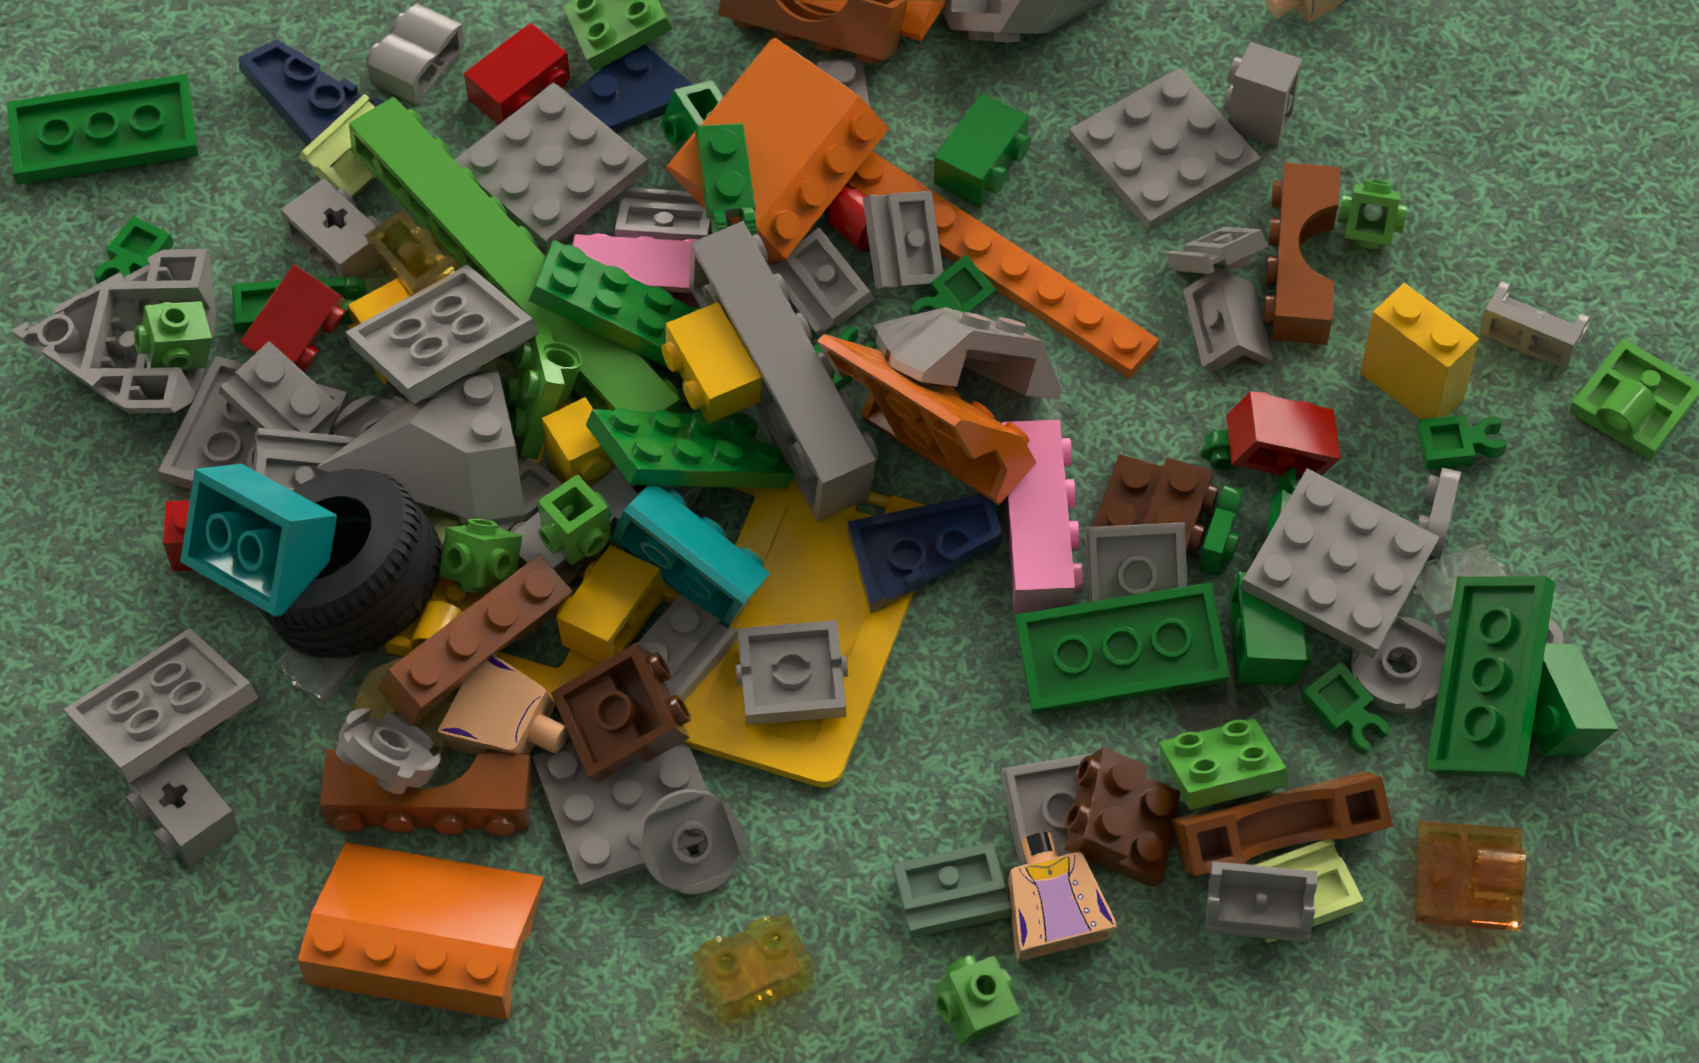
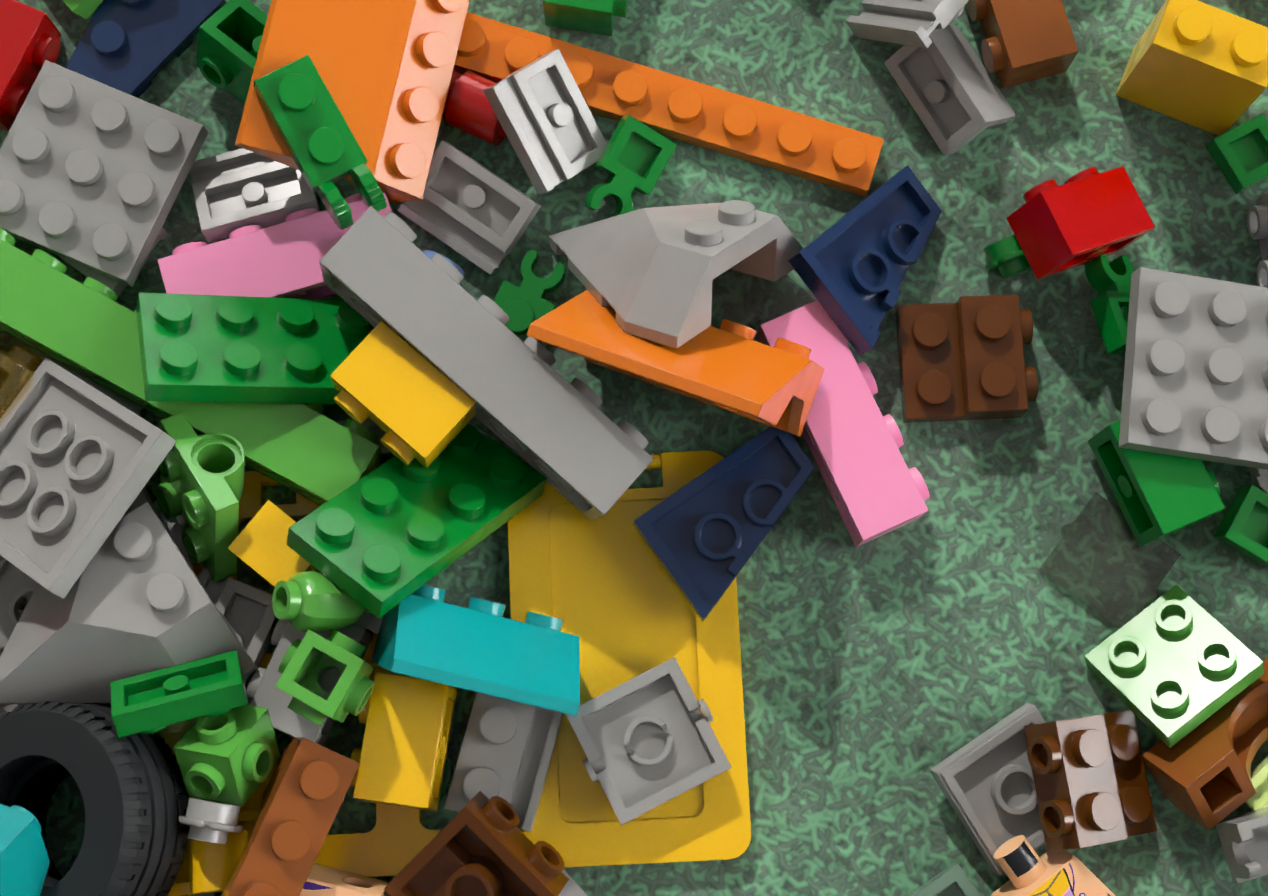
camera: 25 degrees left, 20 degrees up
(444, 495) = (177, 694): none -> green plate
(450, 587) = (211, 820): none -> light grey plate
(596, 471) = (315, 603): none -> bright green plant
(1107, 404) = (865, 255): none -> dark blue wing
(1122, 648) = (1004, 560): green plate -> none
(1134, 559) = (984, 458): light grey plate -> none
(1220, 540) = (1057, 376): green plate -> none

